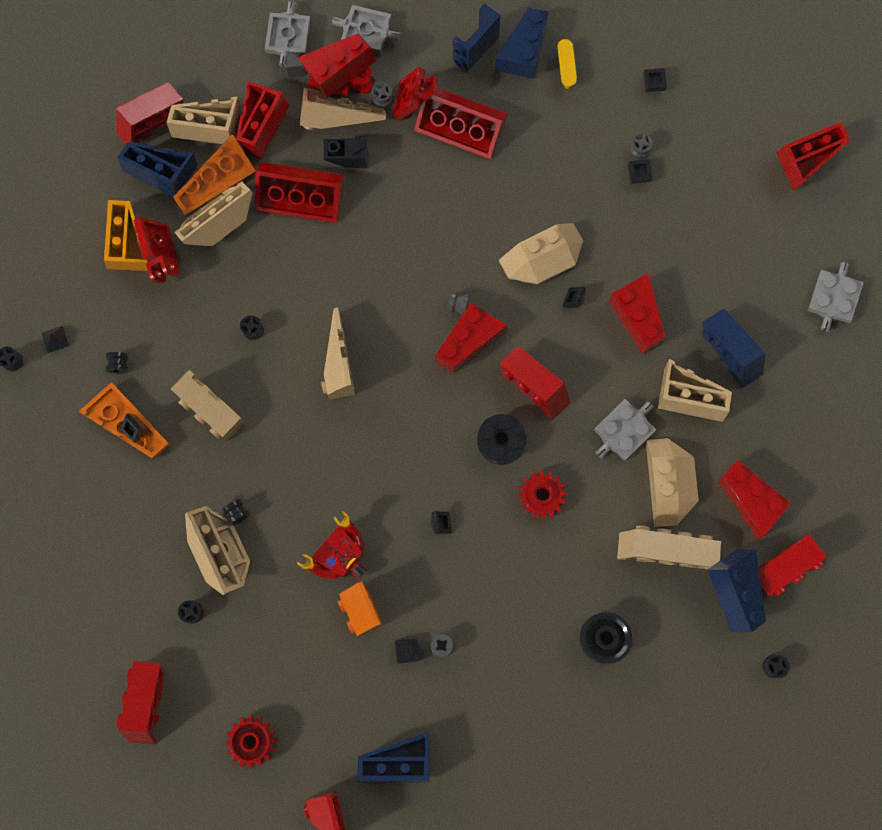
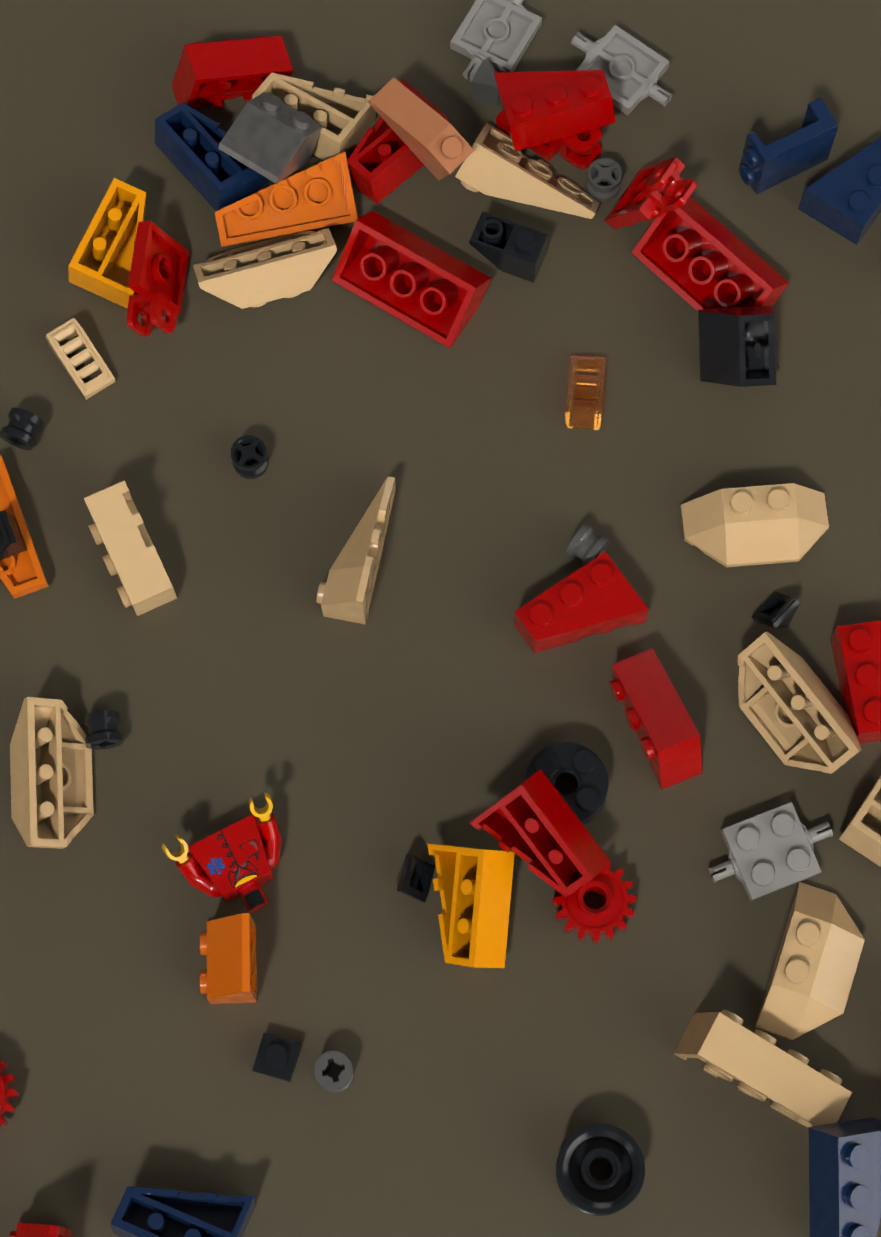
camera: 20 degrees right, 5 degrees down
(121, 301) = (68, 339): none -> tan slope
(188, 142) = (271, 137): none -> flat silver slope
(271, 105) = (421, 129): none -> nougat slope
(424, 230) = (582, 413): none -> clear orange slope
(480, 523) = (474, 903): none -> light orange wedge
(495, 160) = (738, 346): none -> black slope
(502, 470) = (545, 834): none -> red wedge
(606, 347) = (793, 708): none -> tan wedge

